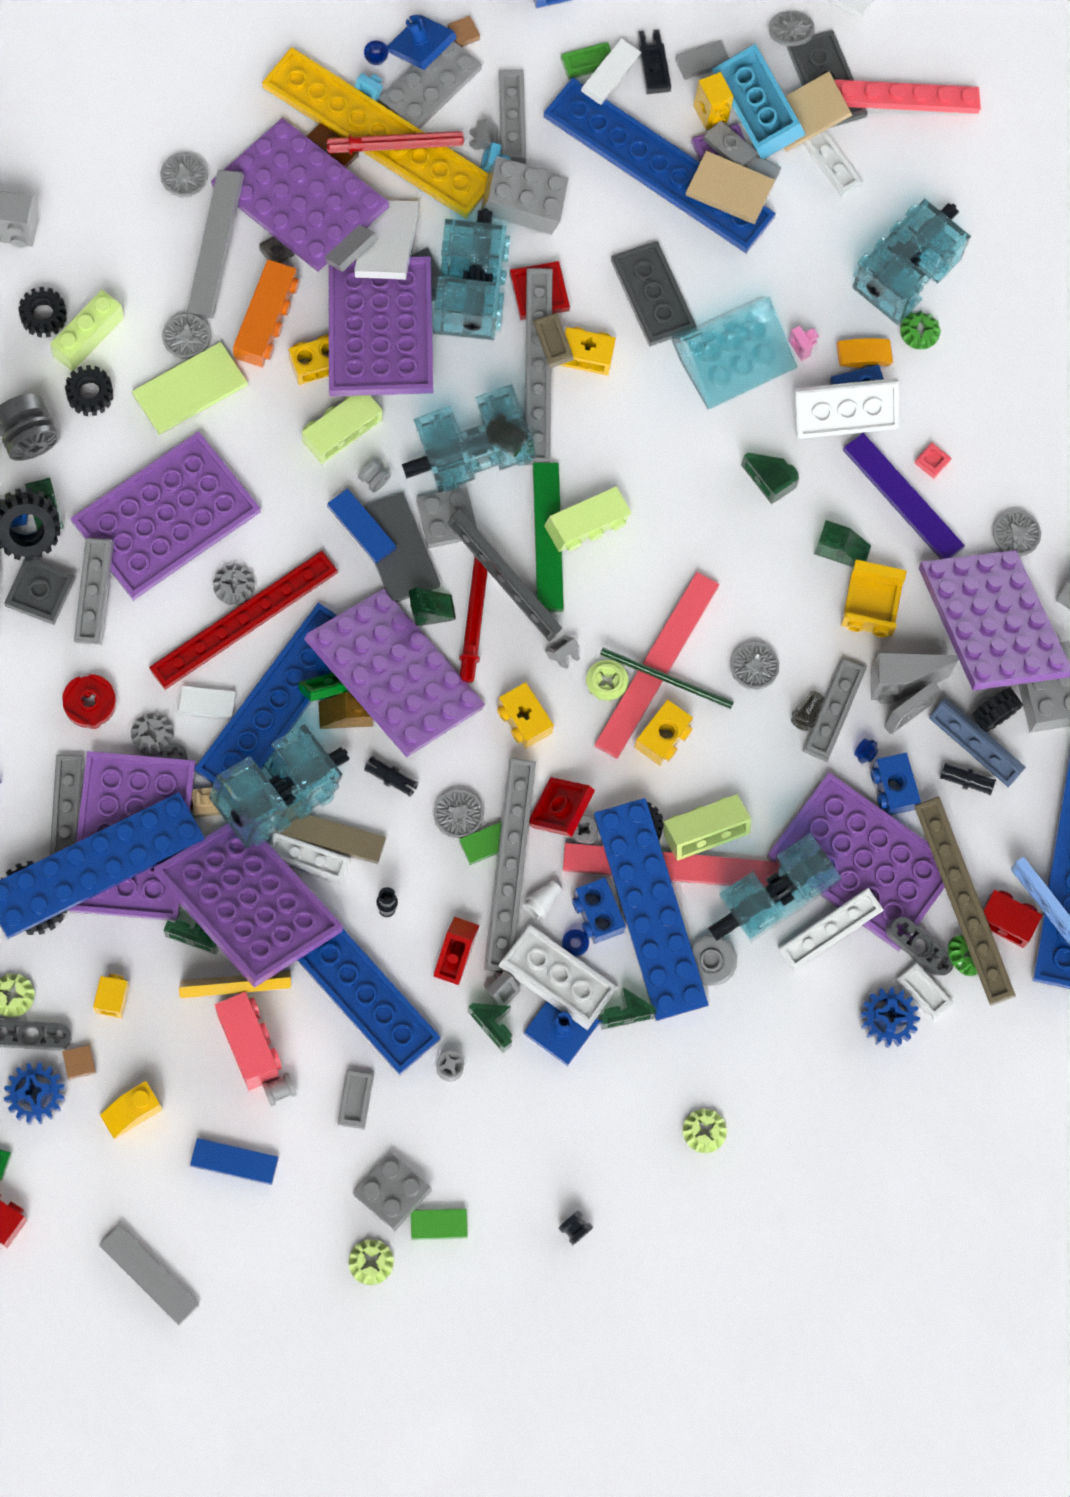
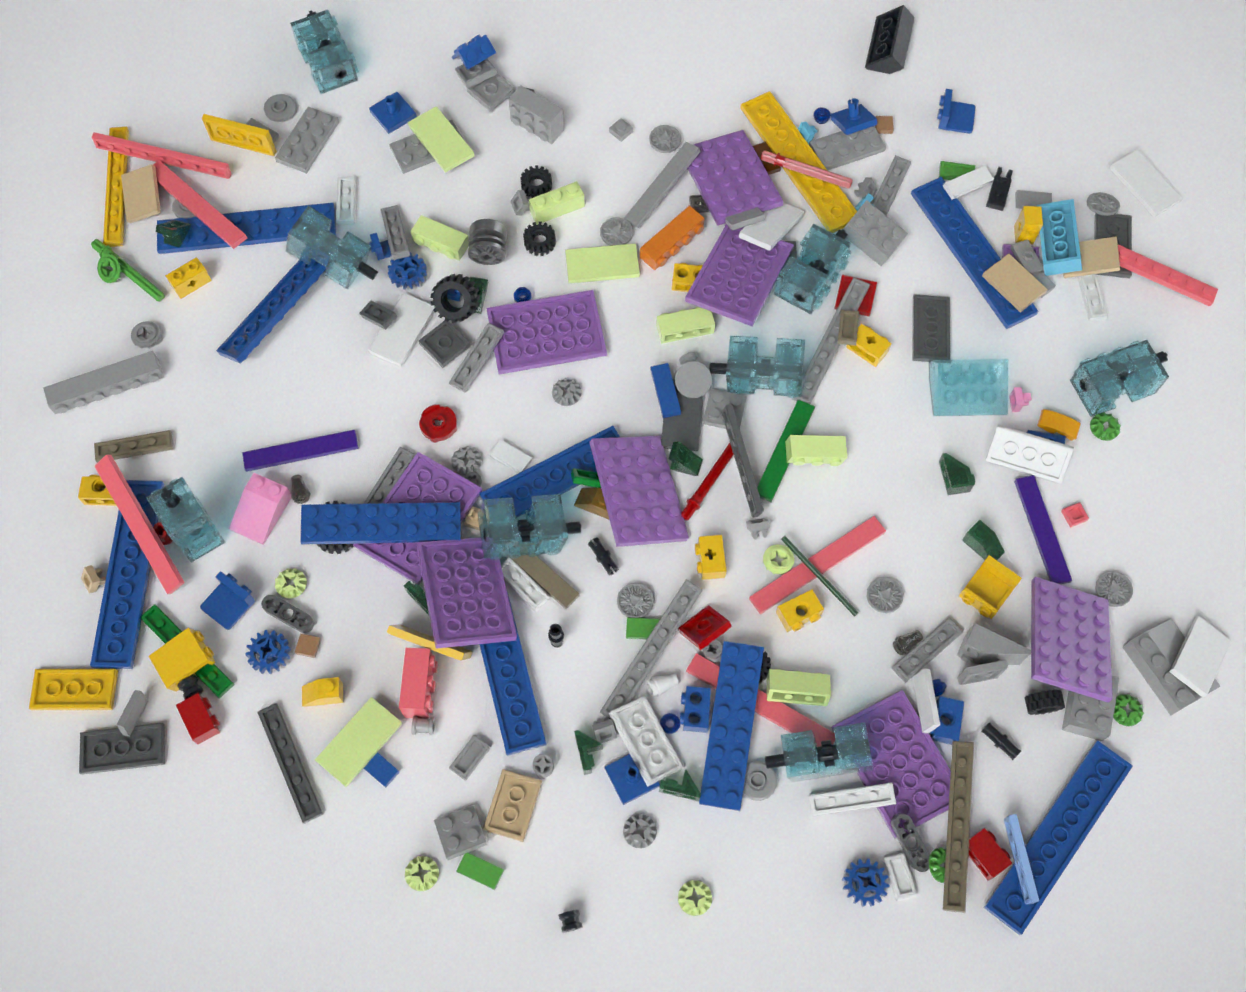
camera: 35 degrees right, 5 degrees down
(37, 351) = (520, 202): none -> light grey tile
(105, 473) = (522, 291): none -> clear blue plate
(111, 996) = (350, 612): yellow brick -> none
(117, 186) = (621, 129): none -> light grey plate
(137, 1213) = (290, 763): none -> dark grey tile
(149, 1275) = (274, 808): light grey tile -> none
(211, 1146) = (358, 742): none -> yellowish green tile
(243, 620) = (561, 416): red tile -> none
(391, 497) = (693, 380): none -> light grey tile
(437, 1130) = (512, 805): none -> tan tile
(456, 950) = (587, 689): red slope -> none
(506, 435) = (784, 369): clear smoke bracket -> none
(605, 1098) = (637, 840): none -> light grey gear
(862, 772) = (926, 701): none -> white tile
(977, 742) = (1019, 718): sand blue tile -> none

